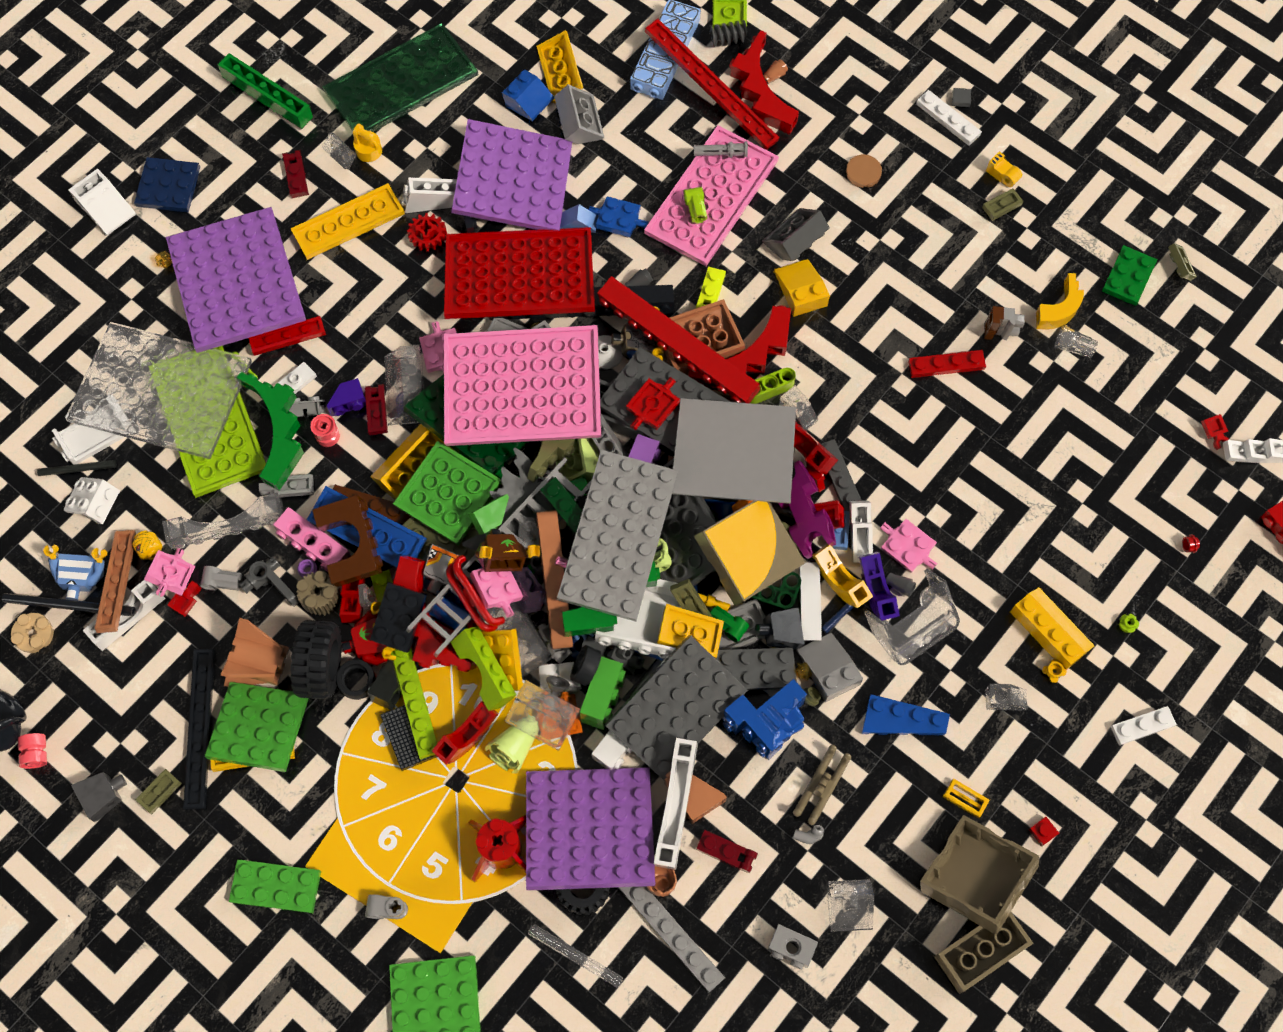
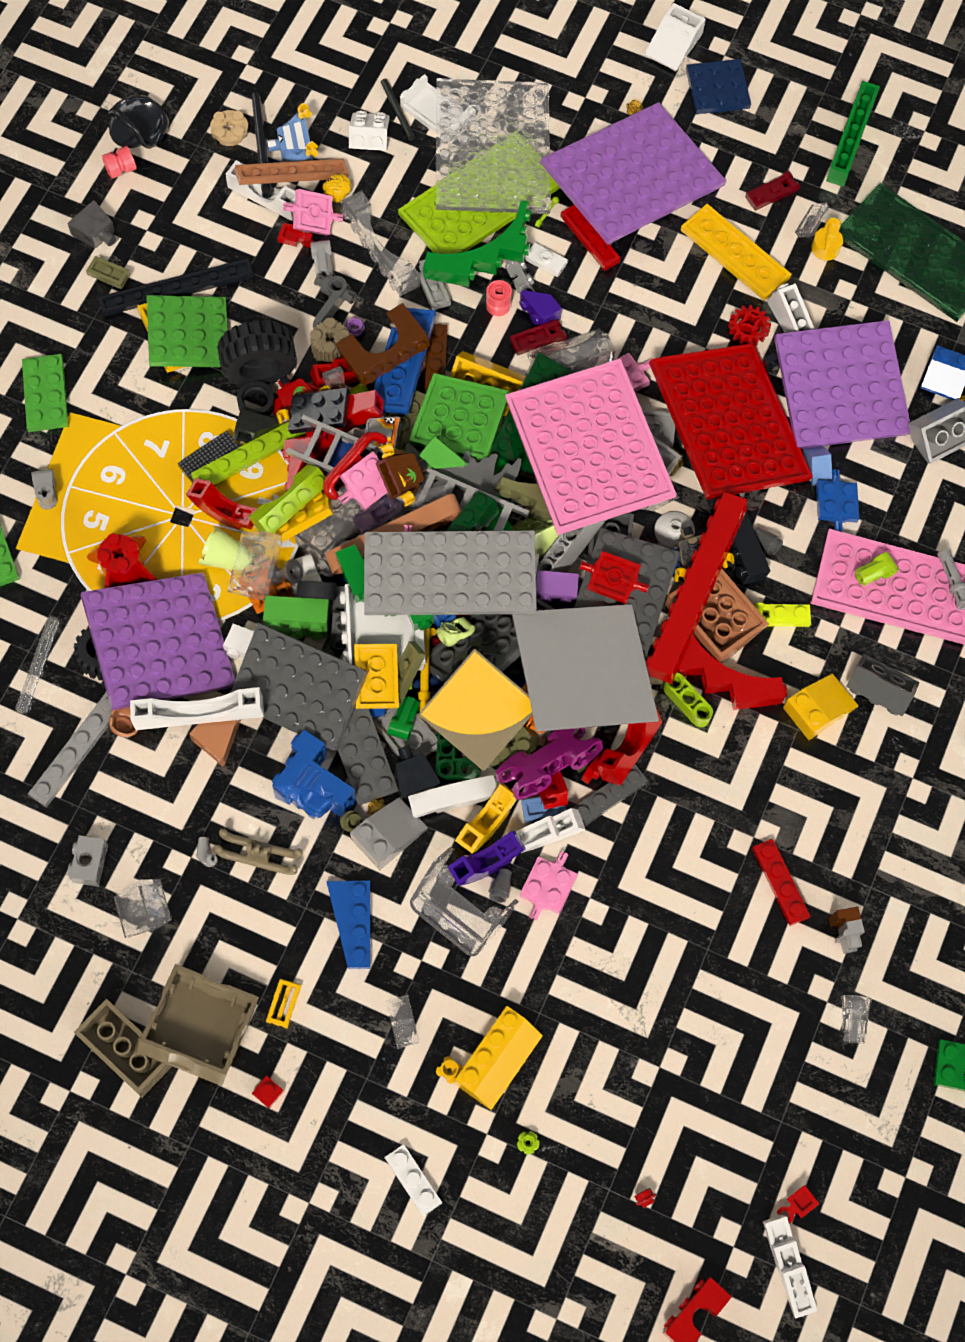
camera: 70 degrees right, 0 degrees up
(254, 657) = (248, 299): nougat brick -> none
(291, 520) = (389, 295): bright pink brick -> none
(726, 851) = (170, 777): dark red plate -> none
(804, 412) = (671, 735): clear slope -> none
(836, 618) = (445, 829): dark blue bar -> none
(1059, 314) = (888, 997): yellow arch -> none

